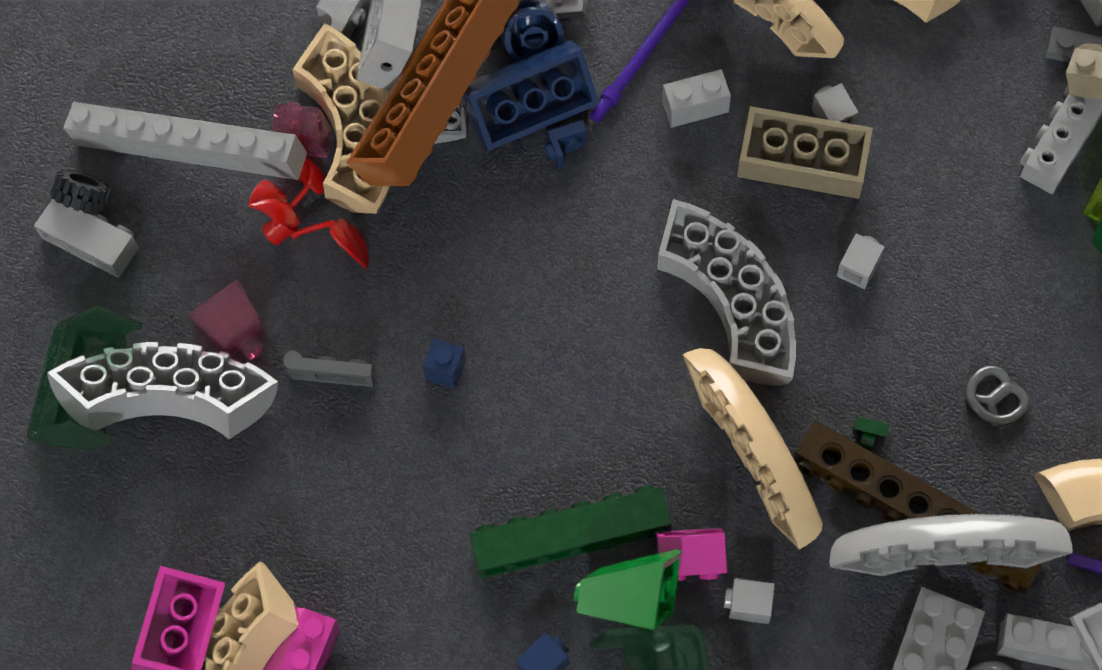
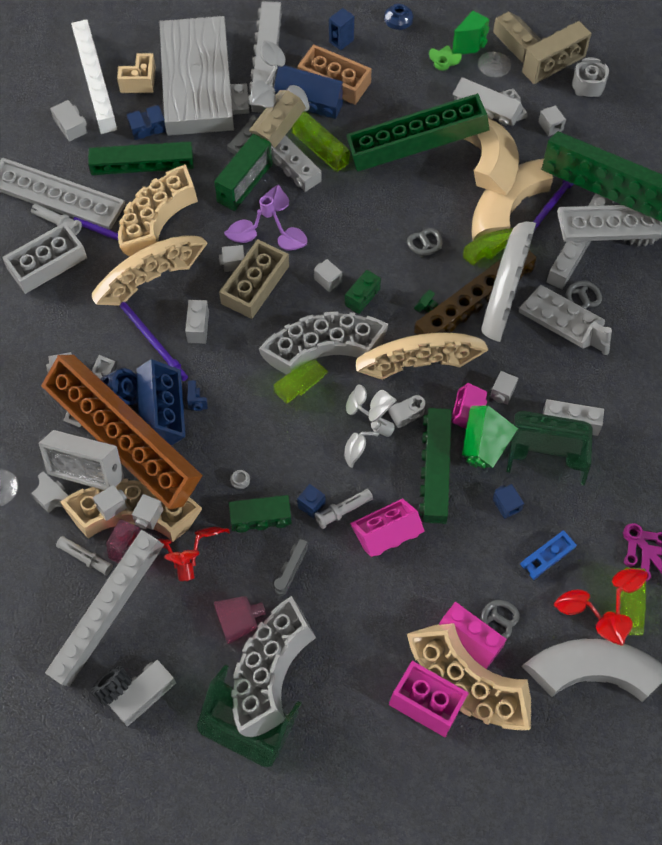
camera: 75 degrees left, 5 degrees down
(262, 100) = (85, 556): none -> light grey pin
(336, 137) = (147, 512): none -> light grey brick
(337, 84) = (110, 502): none -> light grey brick
(401, 299) = (260, 513): none -> dark green brick
(438, 488) = (388, 527): none -> dark pink slope
(441, 406) = (335, 512): none -> light grey pin
(452, 253) = (240, 479): none -> light grey plate
(610, 400) = (379, 405): none -> light grey plant
(648, 456) = (404, 412): none -> light grey piece
(649, 281) = (299, 380): none -> clear neon green slope
(848, 323) = (362, 291): none -> dark green brick
(975, 134) = (274, 200): none -> medium lavender plant
(1002, 65) = (243, 172): none -> dark green brick
(1026, 495) = (486, 245): none -> clear neon green slope

